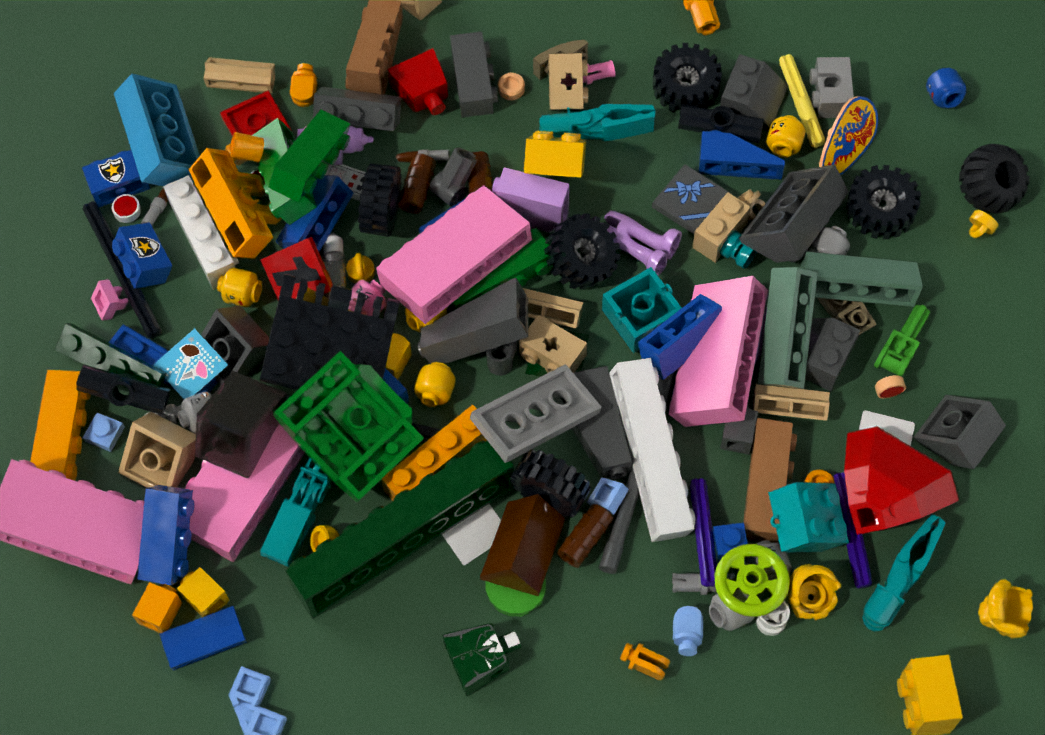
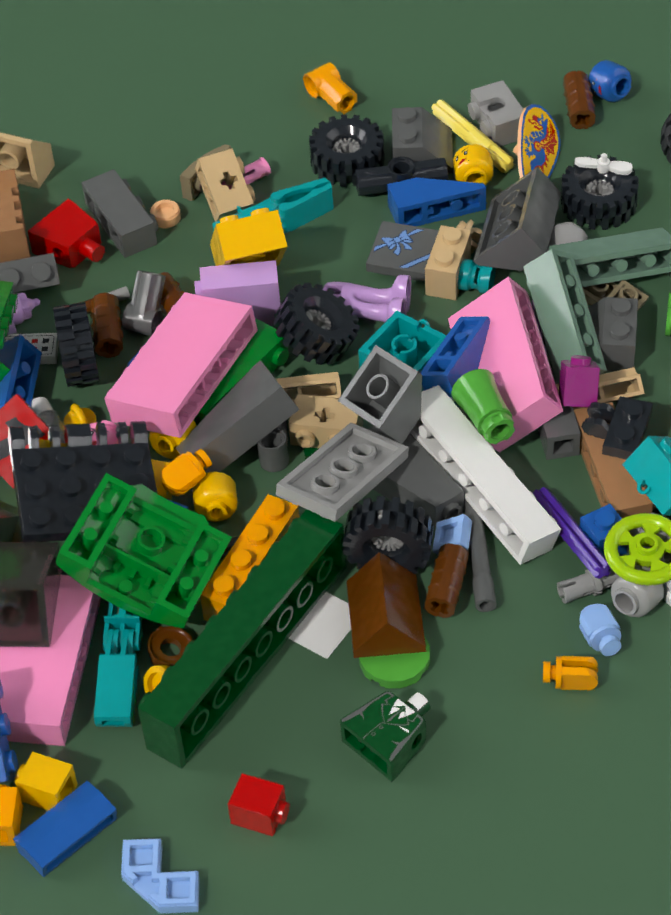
camera: 20 degrees left, 15 degrees down
(341, 497) = (163, 636): none -> reddish brown piece
(353, 679) = (258, 805): none -> red brick
(414, 359) = (185, 472): none -> light orange arm
(597, 356) = (386, 394): none -> dark grey slope
(679, 392) = (482, 402): none -> bright green plant
(769, 398) = (578, 381): none -> magenta brick
(790, 456) = (626, 425): none -> black hinge
(894, 181) = (604, 165): none -> white piece
(910, 97) = (579, 100): none -> reddish brown axle

